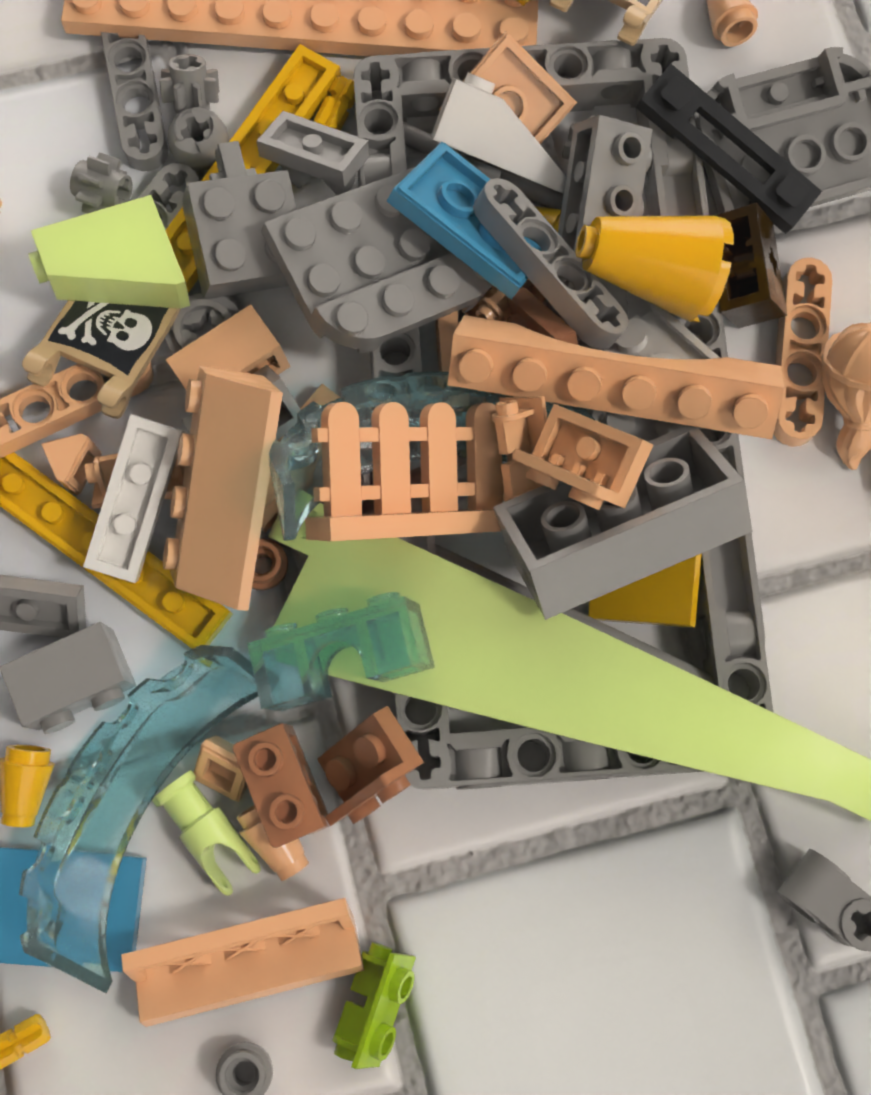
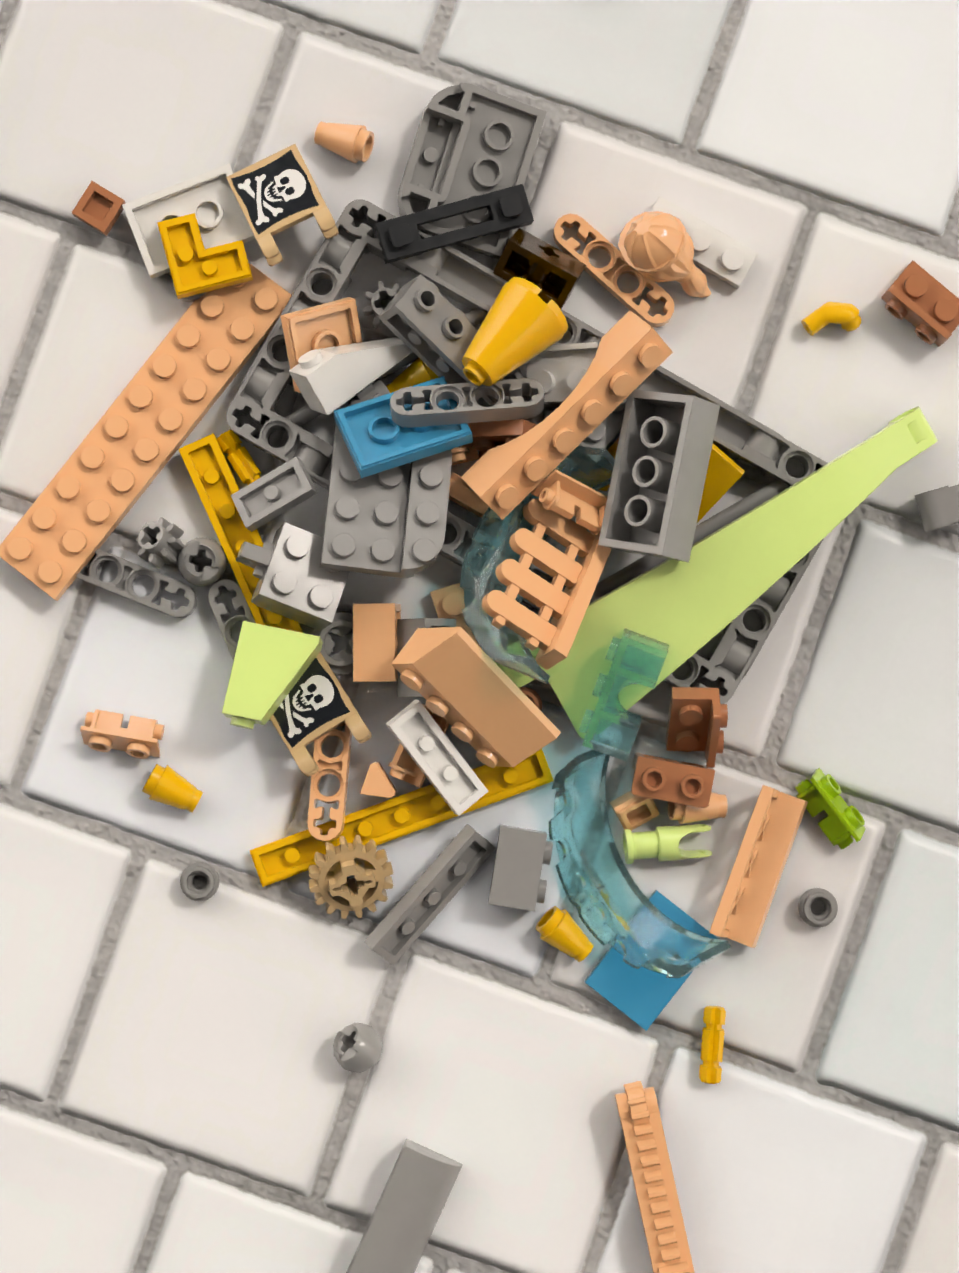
camera: 55 degrees left, 10 degrees up
(100, 183) = (195, 647): light grey gear -> none
(588, 456) = (613, 475): light nougat bracket -> none

